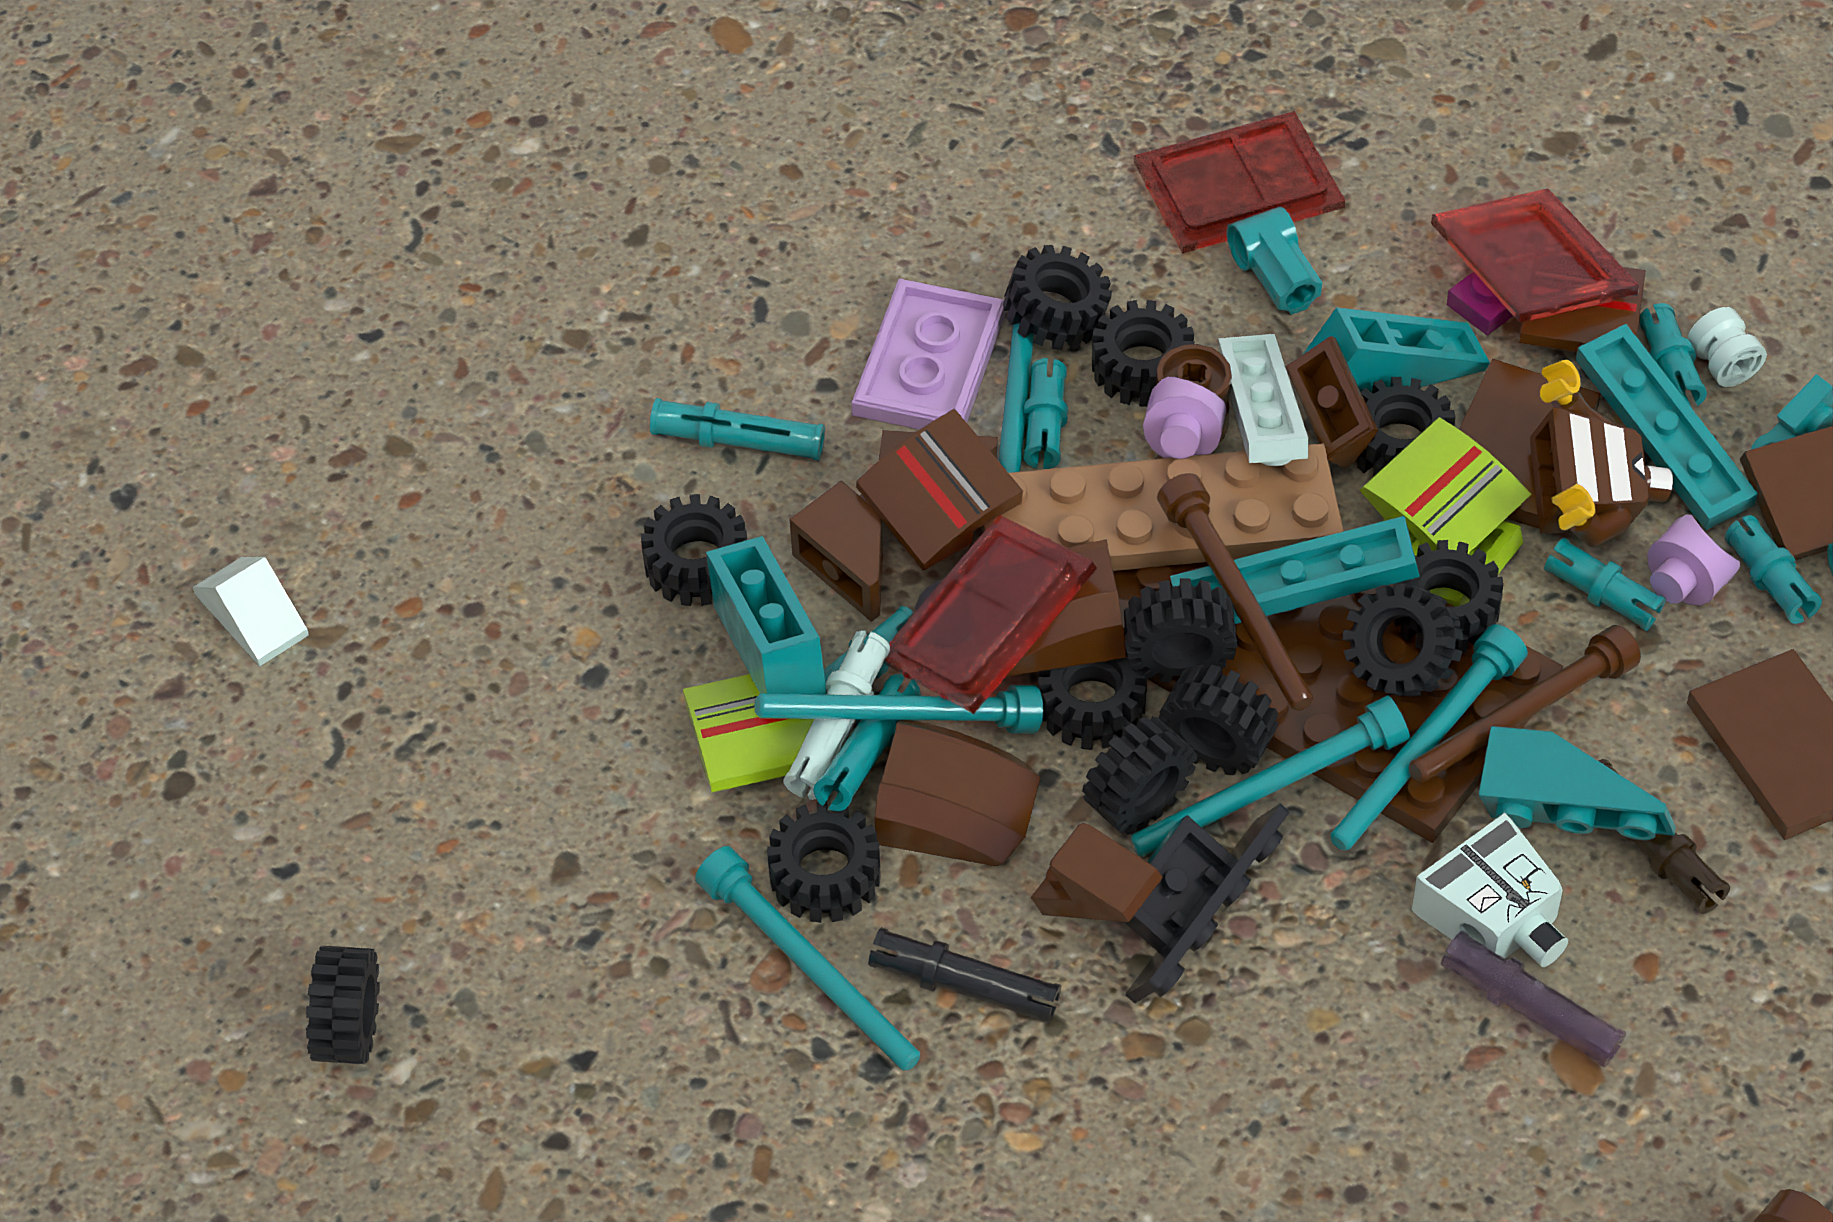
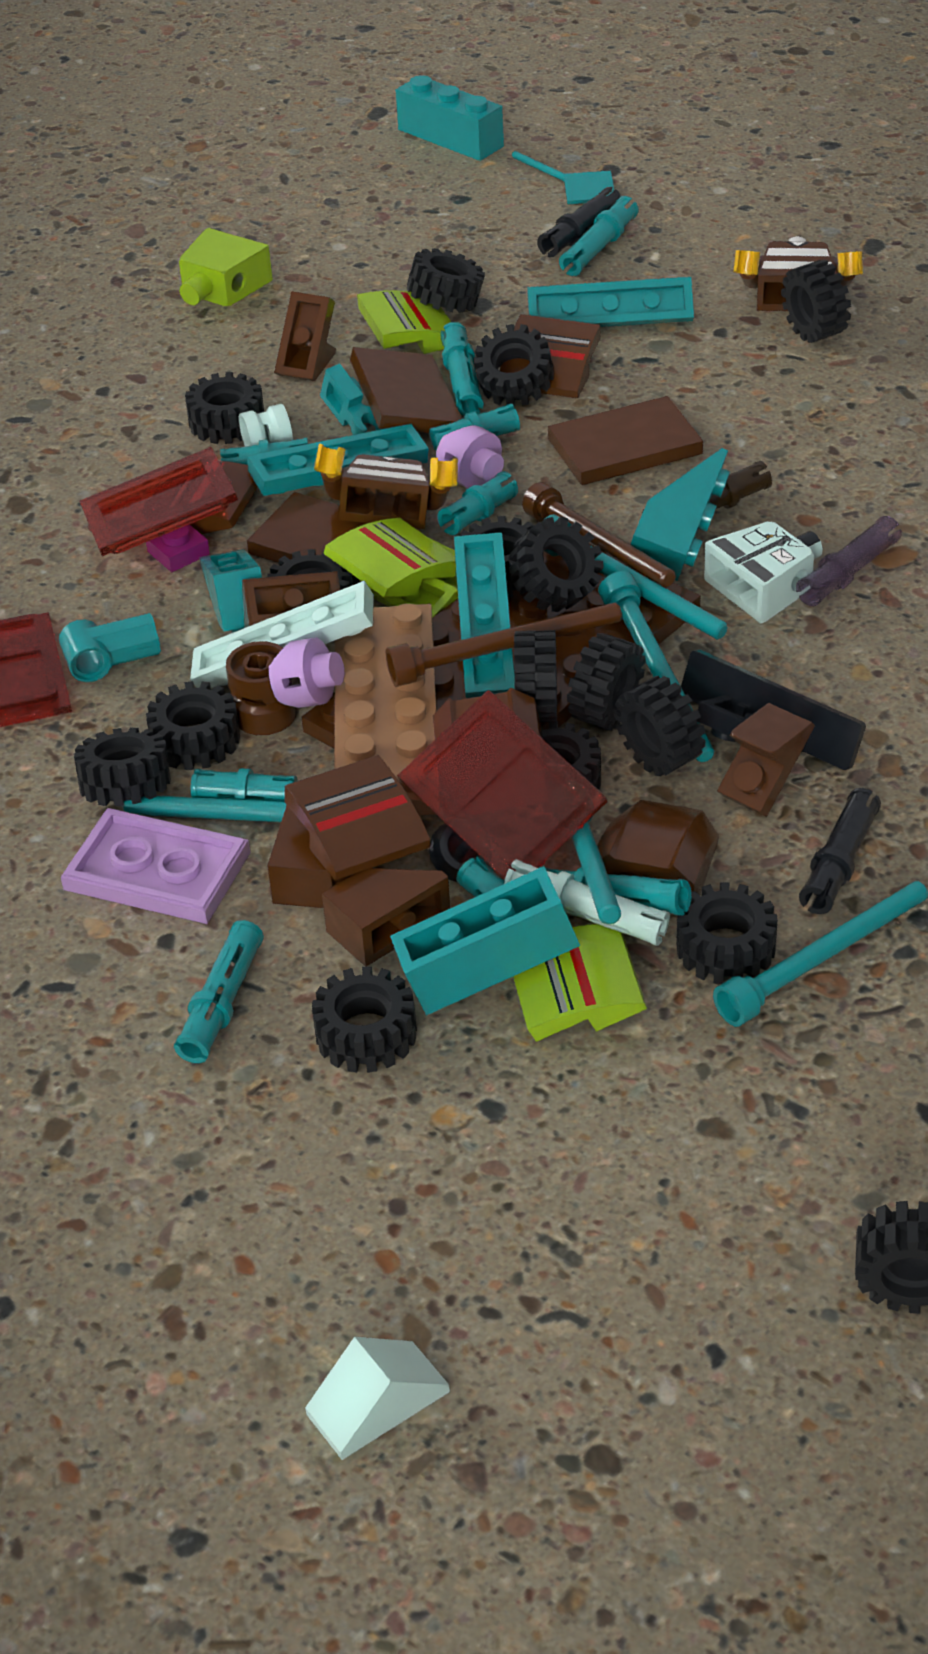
camera: 85 degrees left, 10 degrees down
(1782, 279) = (216, 405): none -> black tyre

